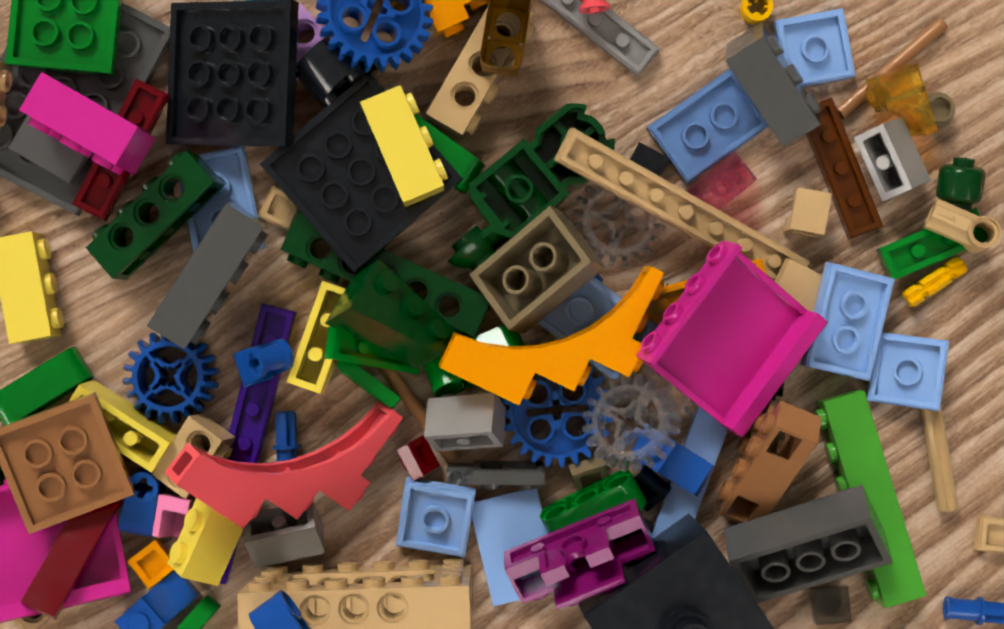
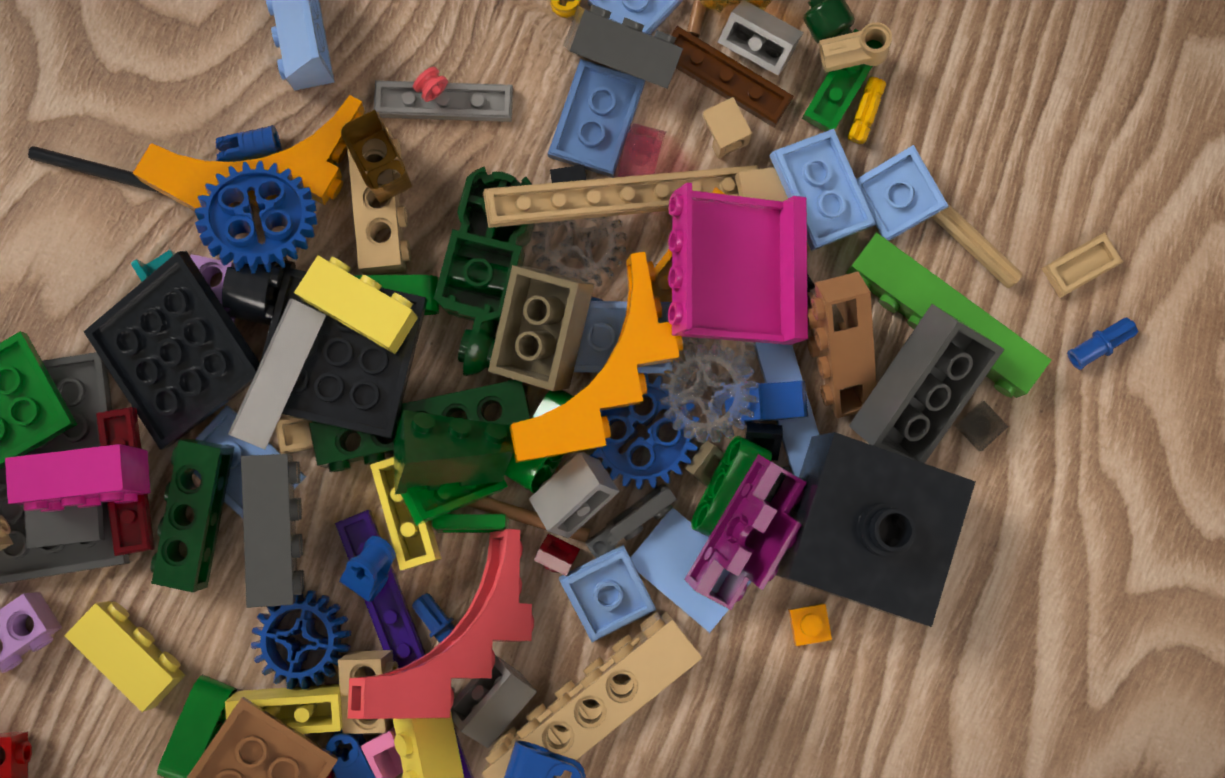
camera: 30 degrees left, 5 degrees down
(300, 156) = (277, 374): none -> light grey tile

